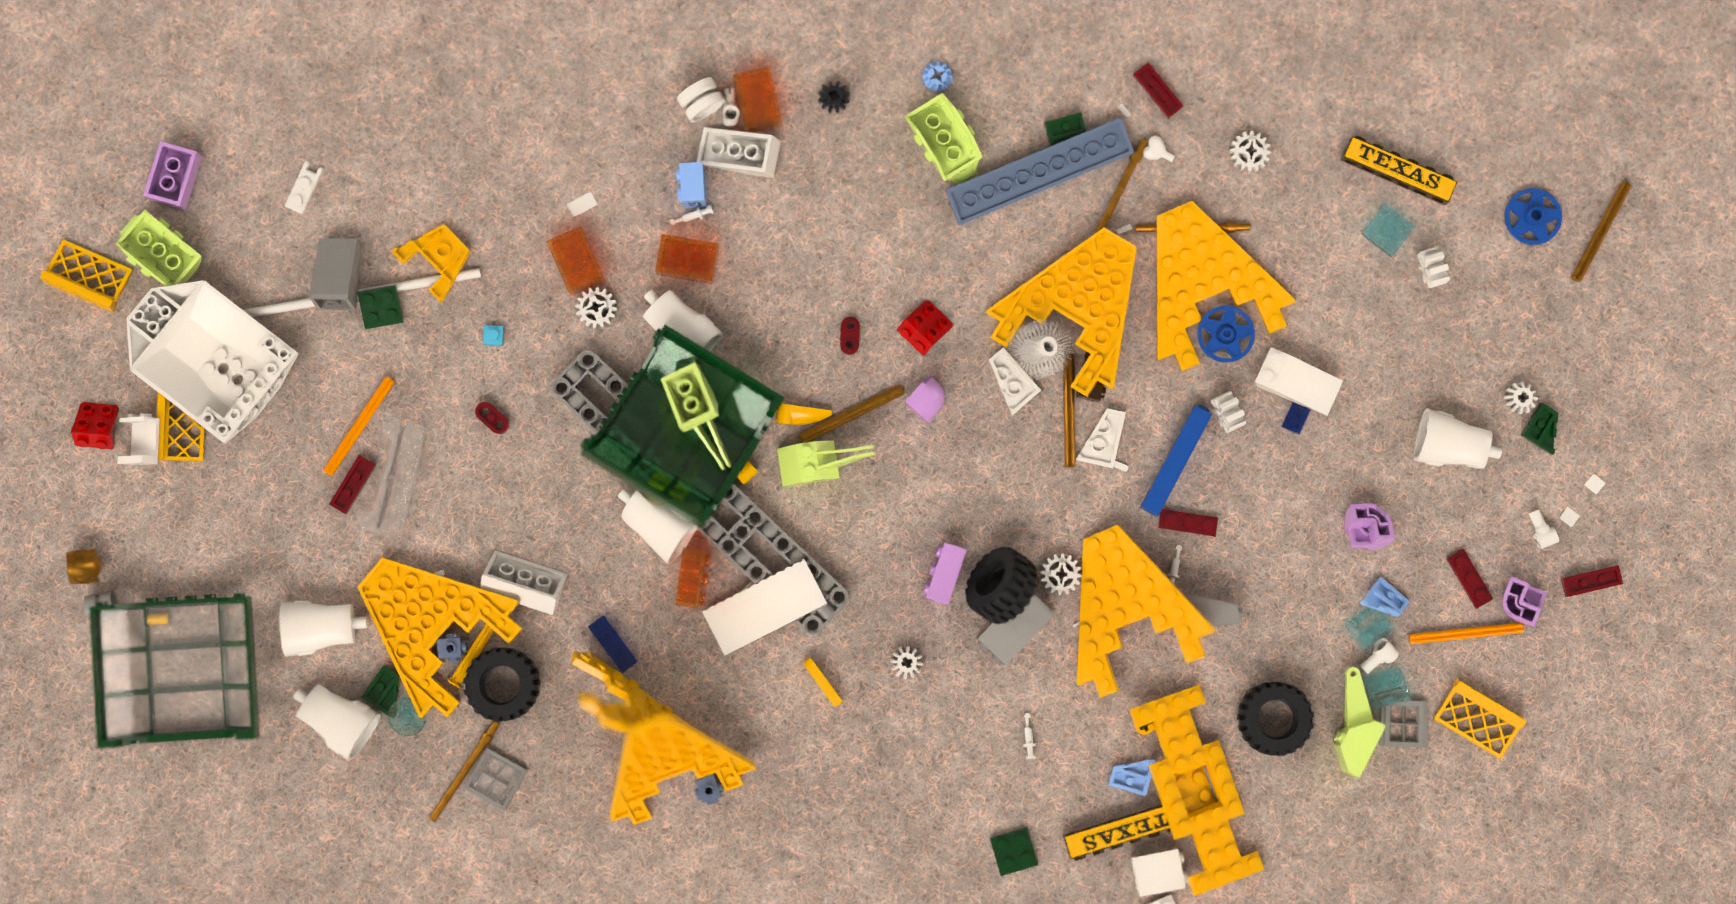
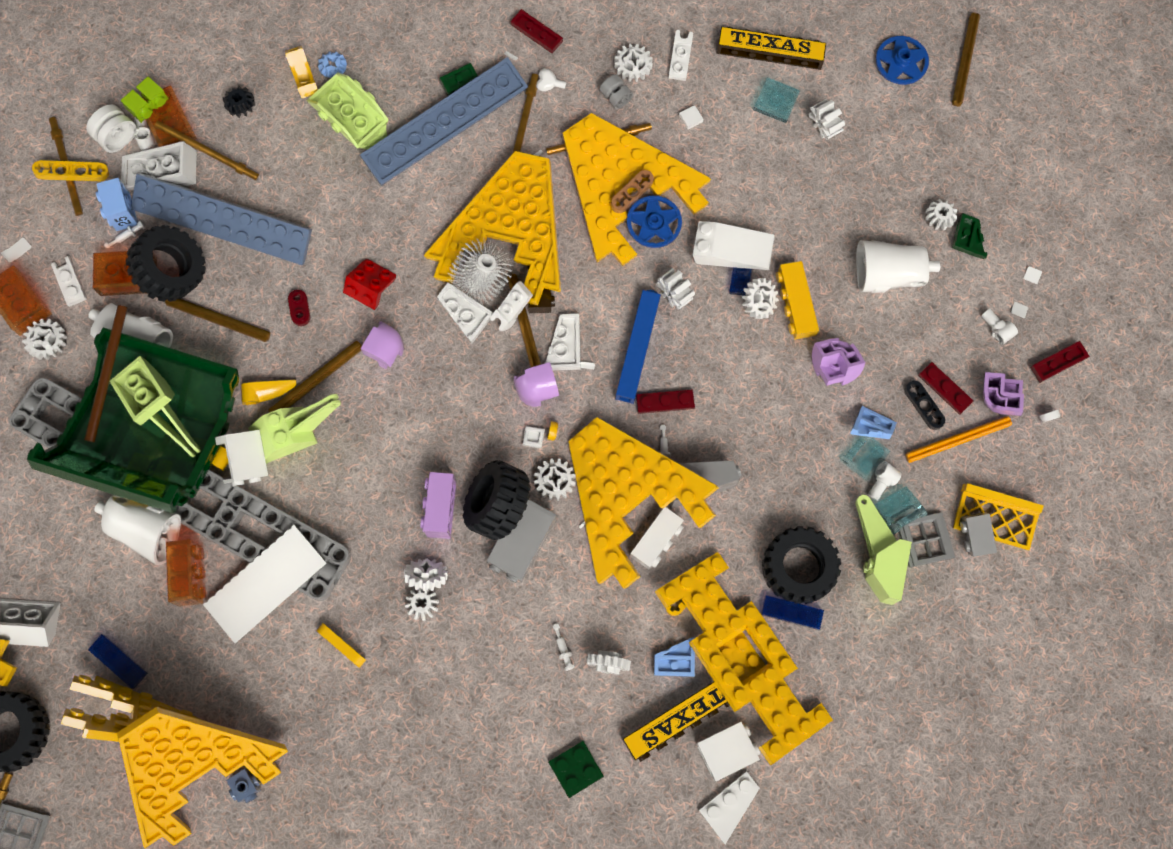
camera: 15 degrees left, 10 degrees down
(628, 252) = (69, 282): none -> white hinge
(642, 89) = (57, 136): none -> pearl gold bar
(651, 131) = (71, 167): none -> yellow beam
(660, 371) = (106, 373): none -> reddish brown piece
(712, 264) = (177, 245): none -> black tyre
(751, 76) = (151, 93): none -> lime piece
(767, 327) = (220, 319): none -> pearl gold axle
(771, 479) = (244, 456): none -> white panel
(791, 224) = (221, 219): none -> sand blue plate
(820, 171) = (239, 167): none -> pearl gold bar
(905, 81) = (301, 71): none -> yellow arch
(917, 636) = (425, 574): none -> white gear
(1050, 526) = (533, 437): none -> white tile
(1062, 391) = (512, 306): none -> white plate
(1066, 478) = (536, 385): none -> lavender brick
(1069, 763) = (608, 662): none -> white gear
(1070, 525) = (552, 431): none -> yellow tile
(1145, 657) = (657, 538): none -> white brick
(1221, 175) = (616, 91): none -> light grey wheel
(1226, 295) = (623, 192): none -> medium nougat beam
(1254, 760) = (792, 612): none -> clear blue plate
(1294, 226) = (691, 117): none -> white tile
(1301, 156) = (680, 56): none -> white plate
(1309, 444) = (760, 298): none -> white gear
(1347, 452) = (798, 300): none -> yellow brick
(1442, 606) = (932, 406): none -> black beam
(1455, 732) = (978, 534): none -> light grey brick
(1563, 633) = (1050, 416): none -> white tile

